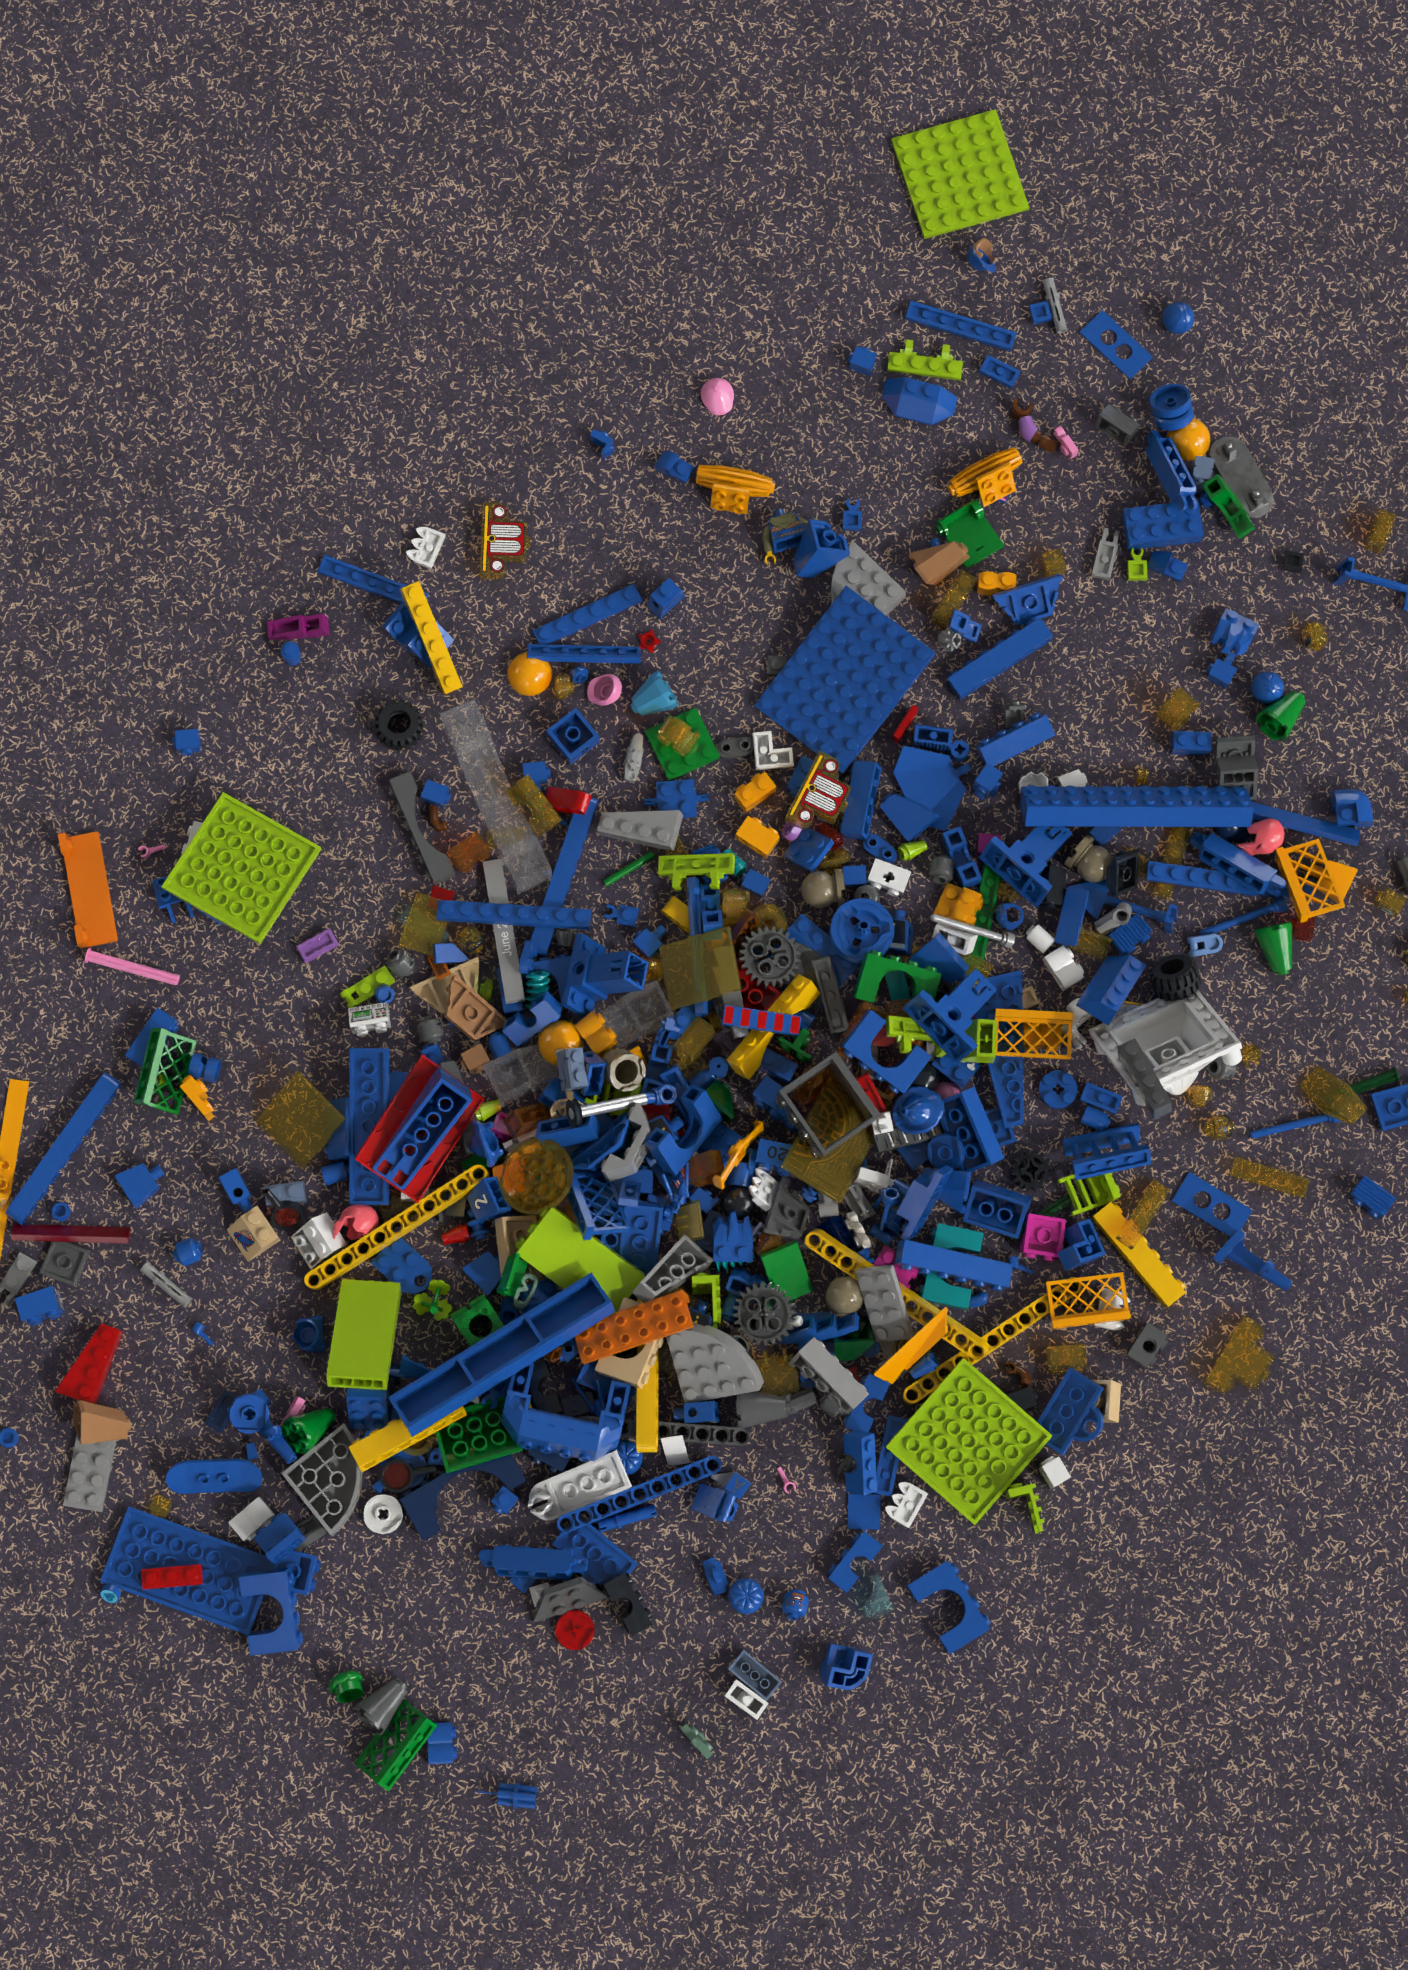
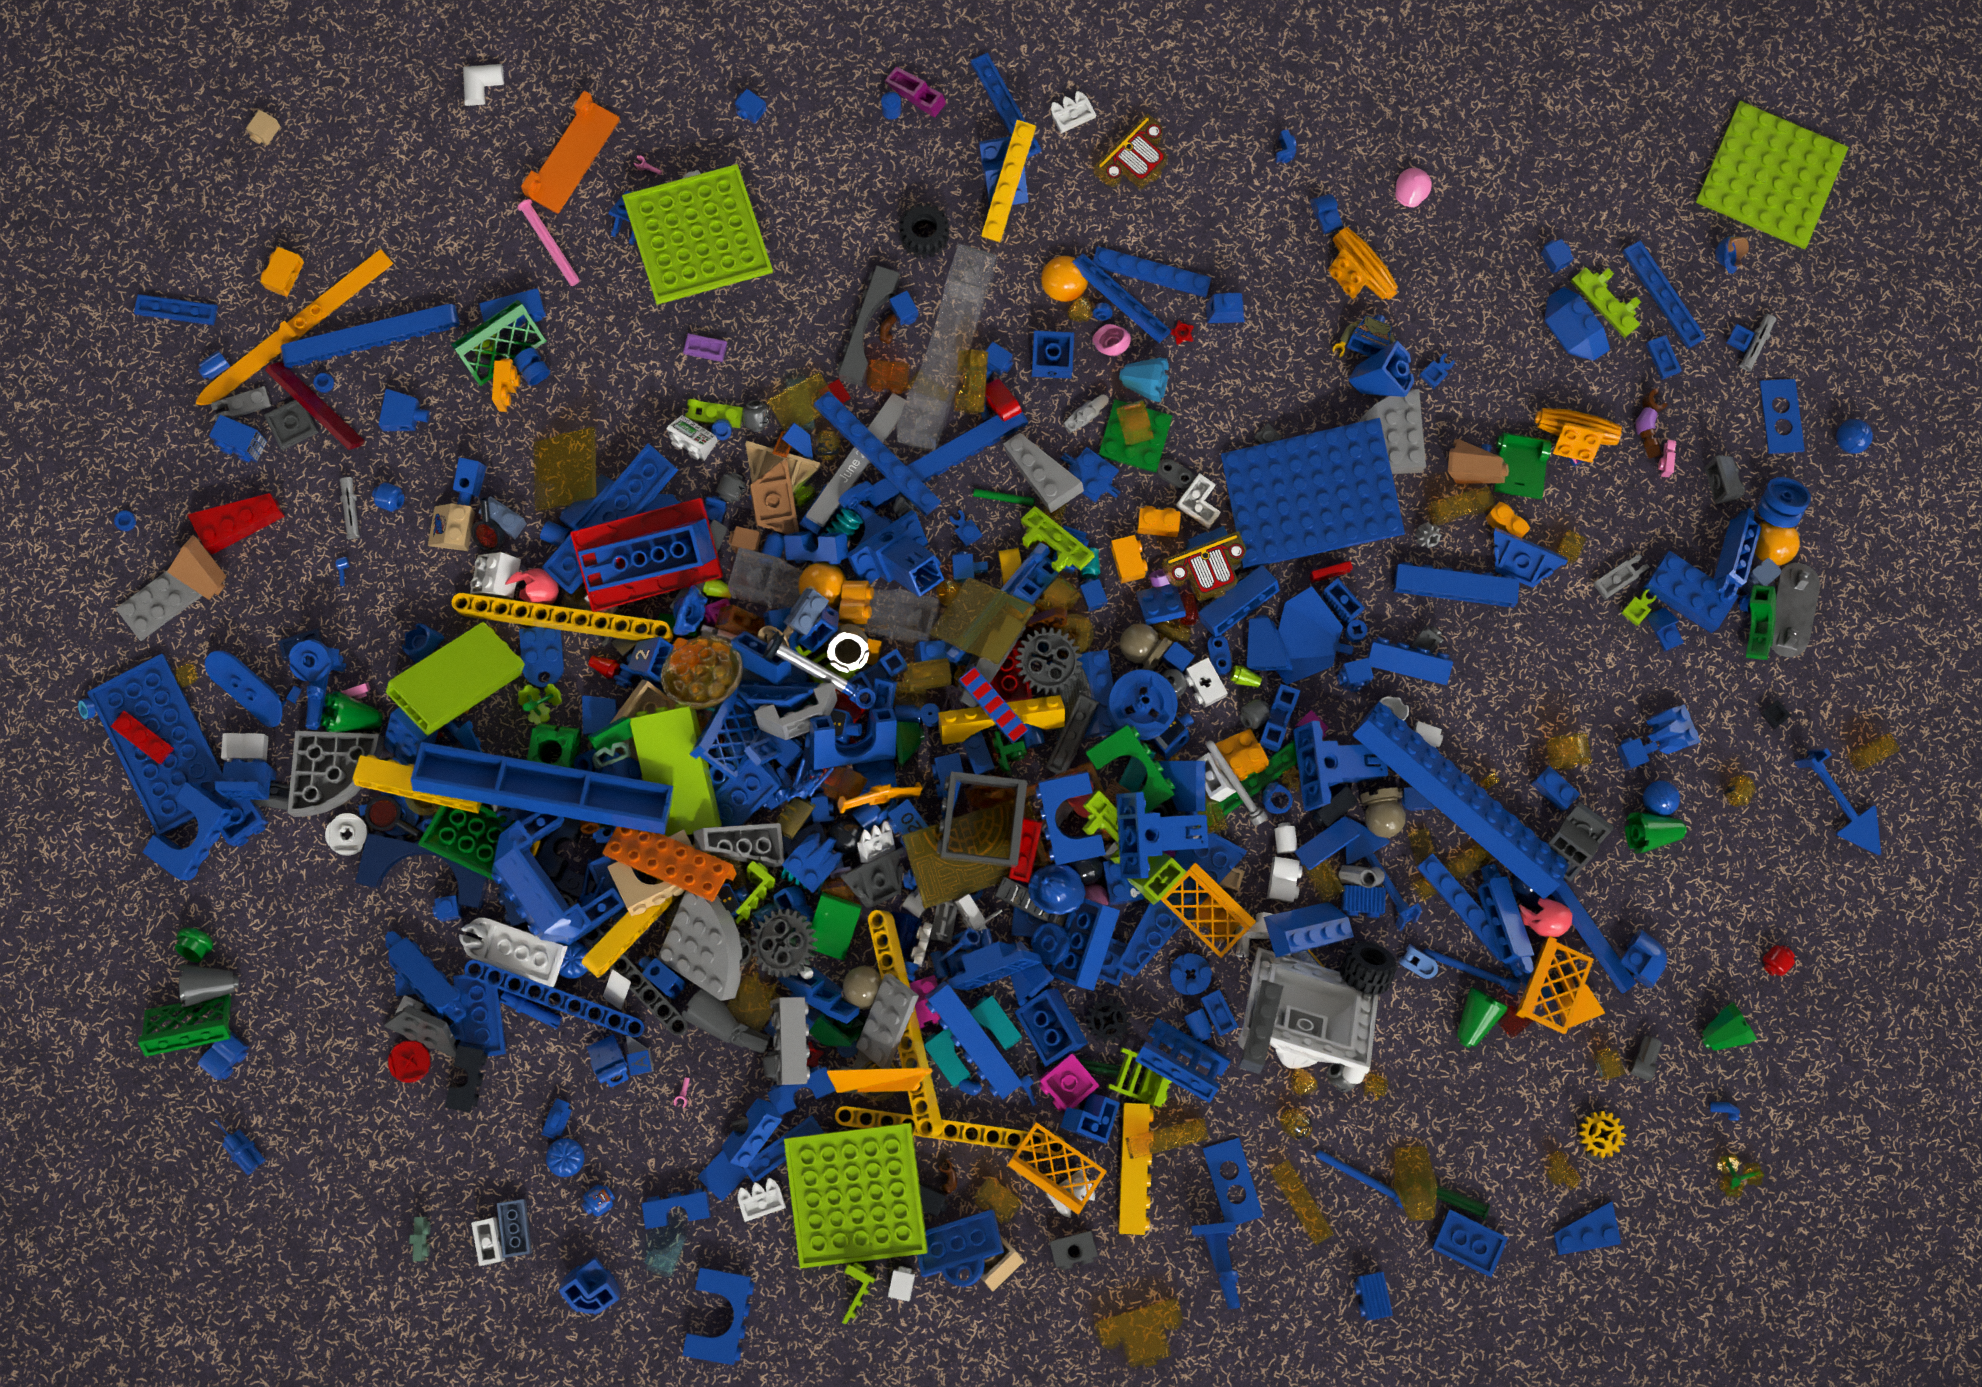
camera: 40 degrees right, 0 degrees up
(667, 1031) = (910, 647): blue piece -> none
(883, 1124) = (1019, 874): white tile -> none
(924, 1365) = (875, 1101): blue cone -> none
(962, 624) = (1449, 533): blue slope -> none
(1123, 873) = (1401, 844): black slope -> none

